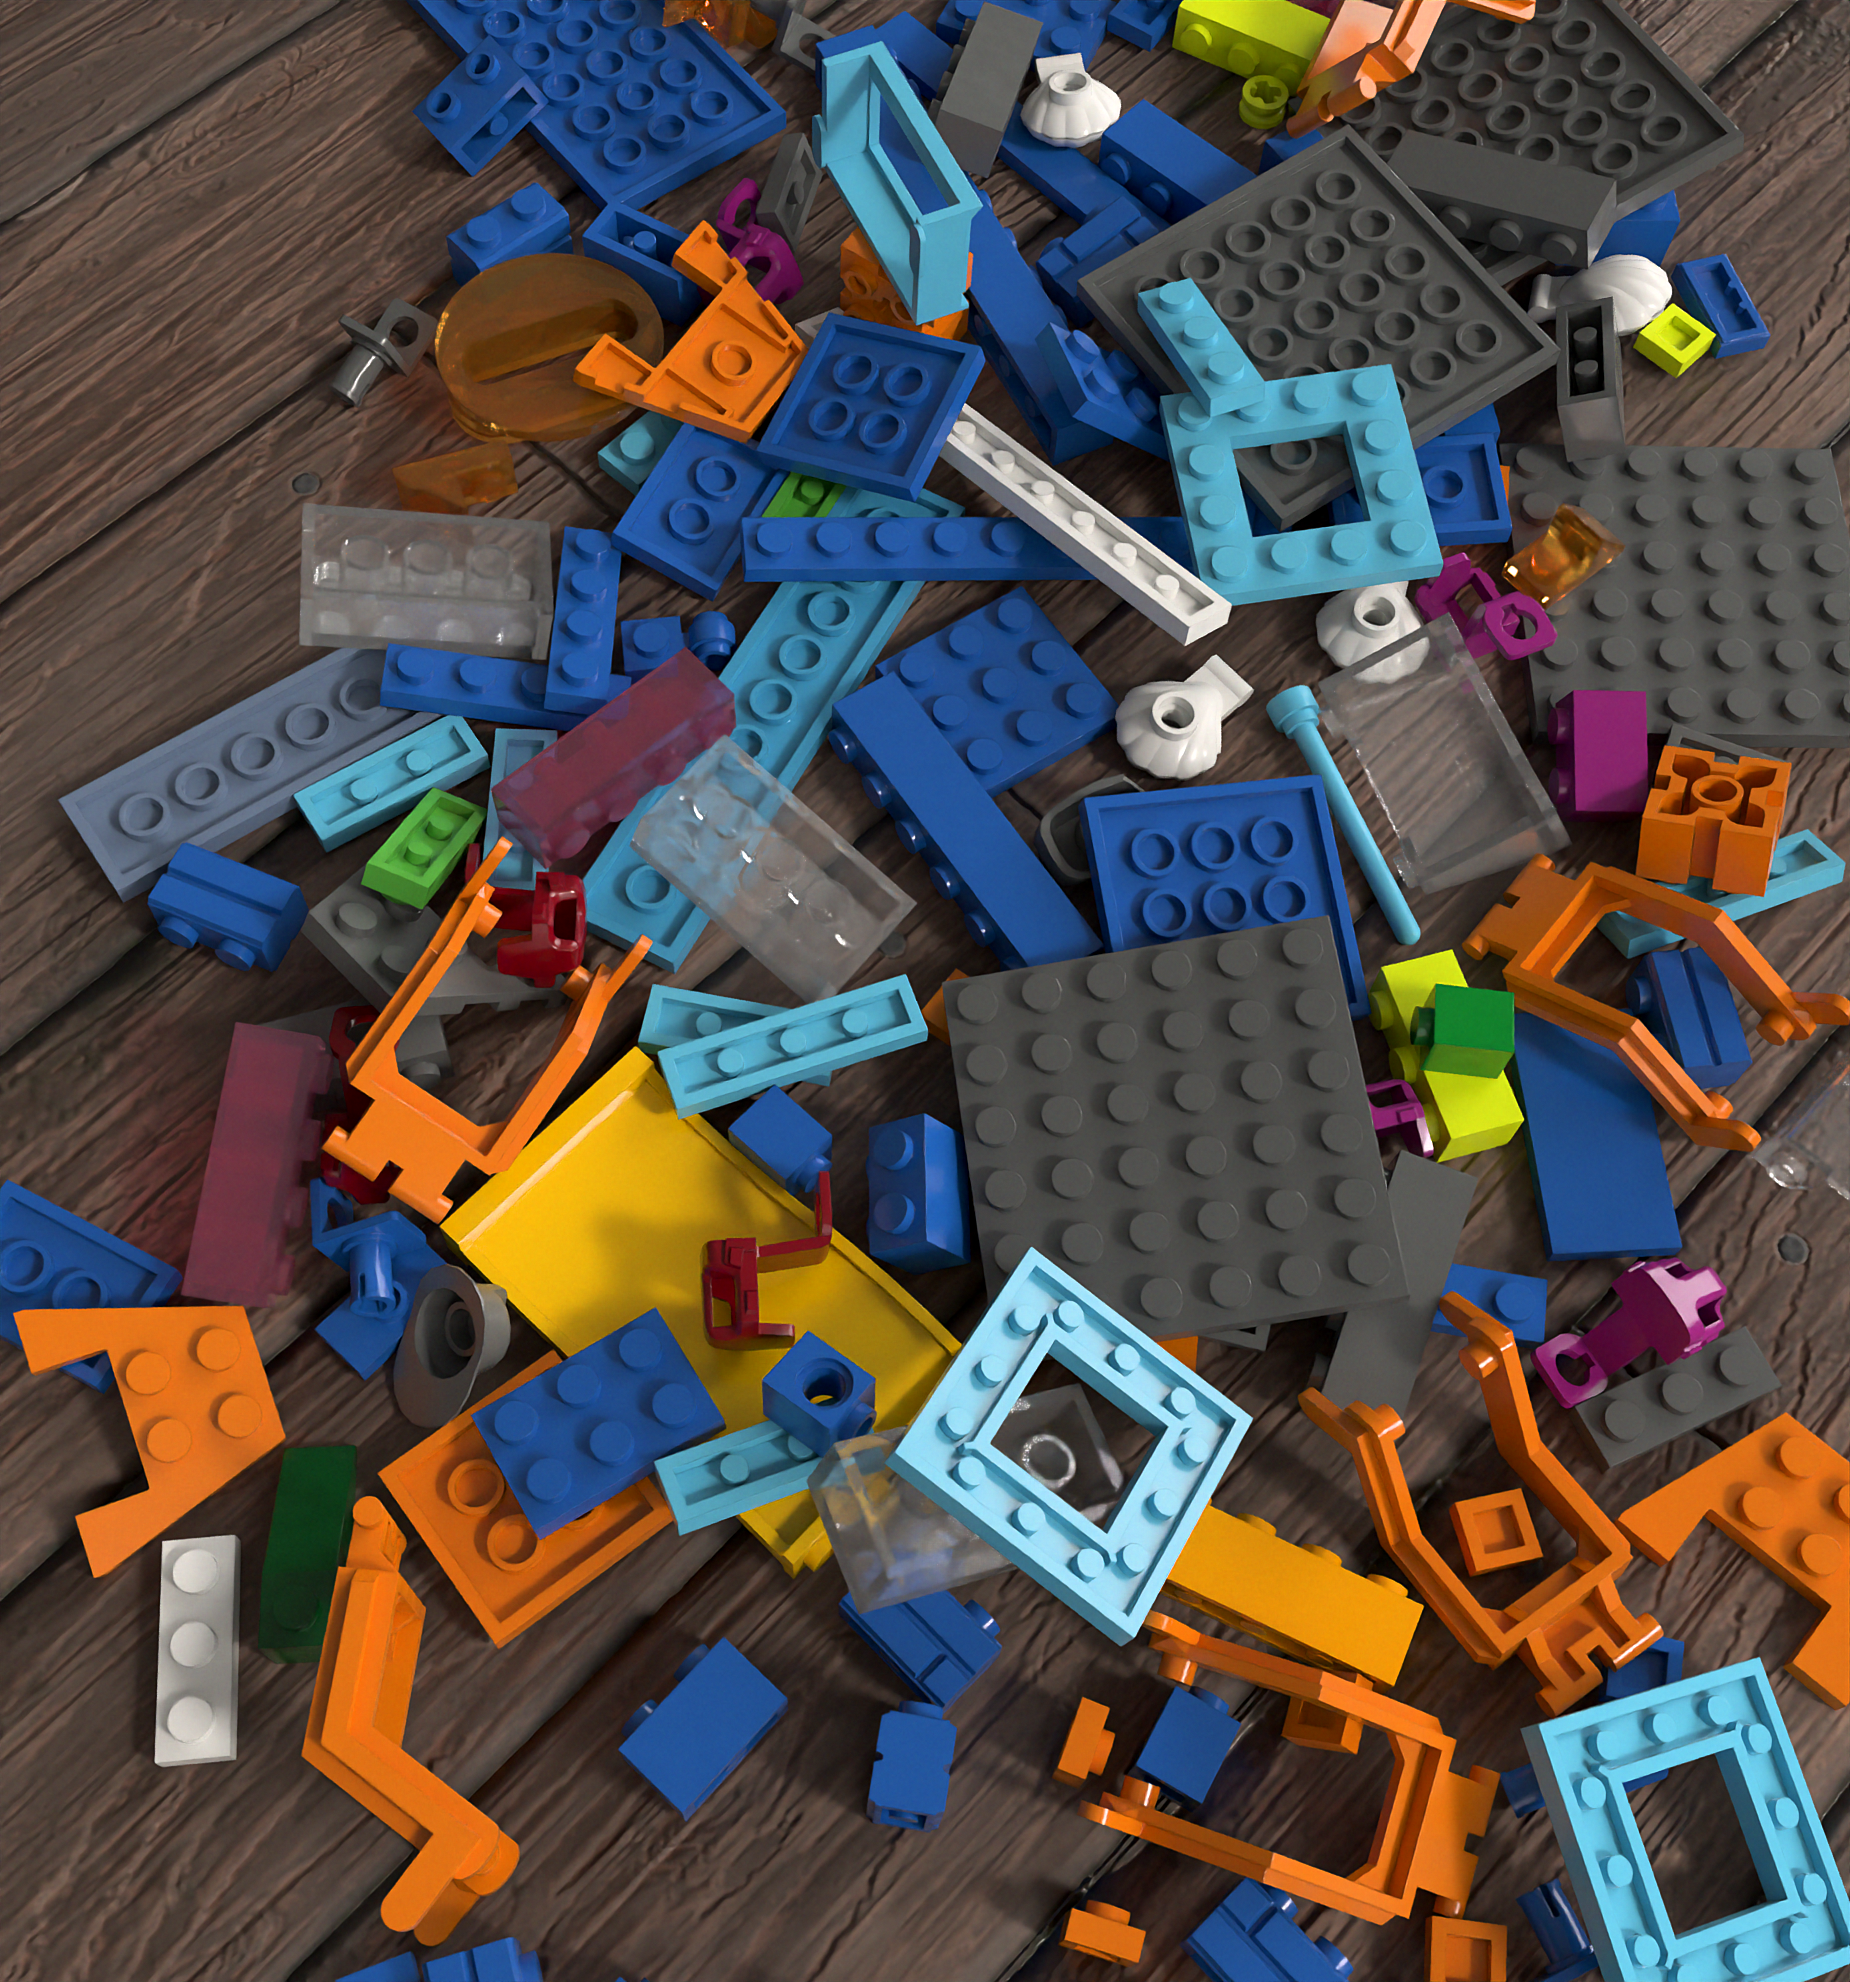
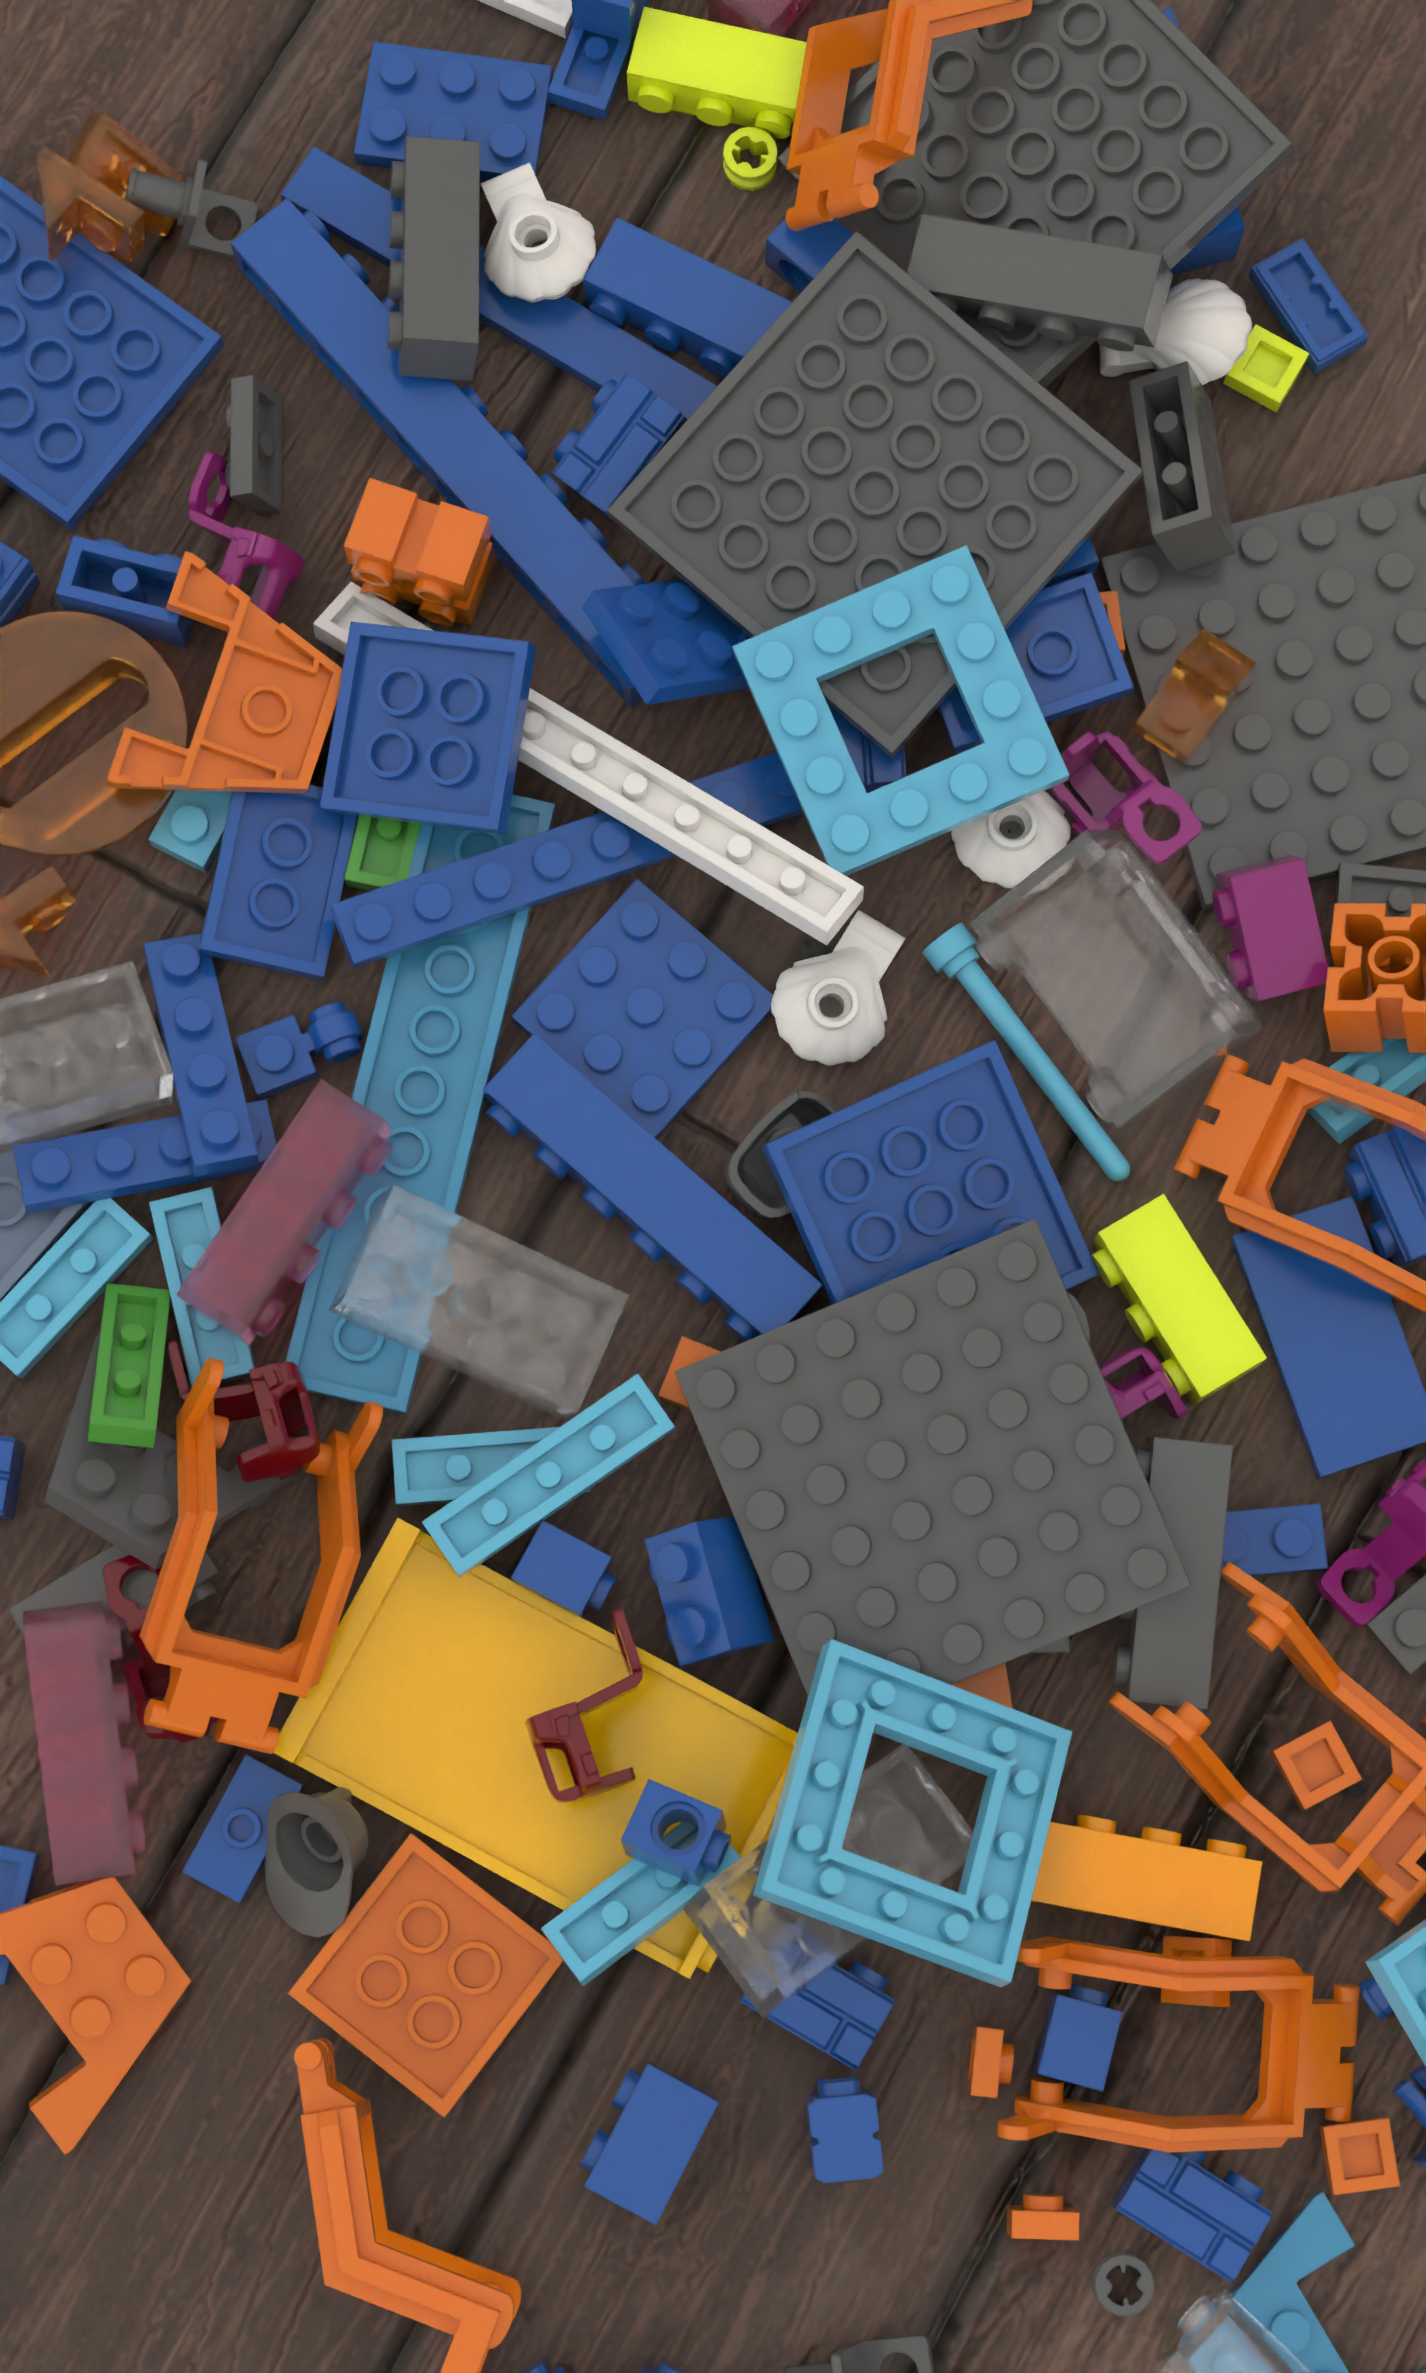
camera: 10 degrees left, 15 degrees up
(198, 1651) = (179, 2190): white plate -> none
(304, 1548) = (250, 2077): dark green slope -> none
(362, 1246) = (208, 1788): blue bracket -> none
(597, 1422) = (476, 1897): blue plate -> none
(917, 251) = (320, 423): medium azure piece -> none
(1201, 347) = (760, 579): medium azure plate -> none
(1464, 1031) = (1190, 1291): green brick -> none

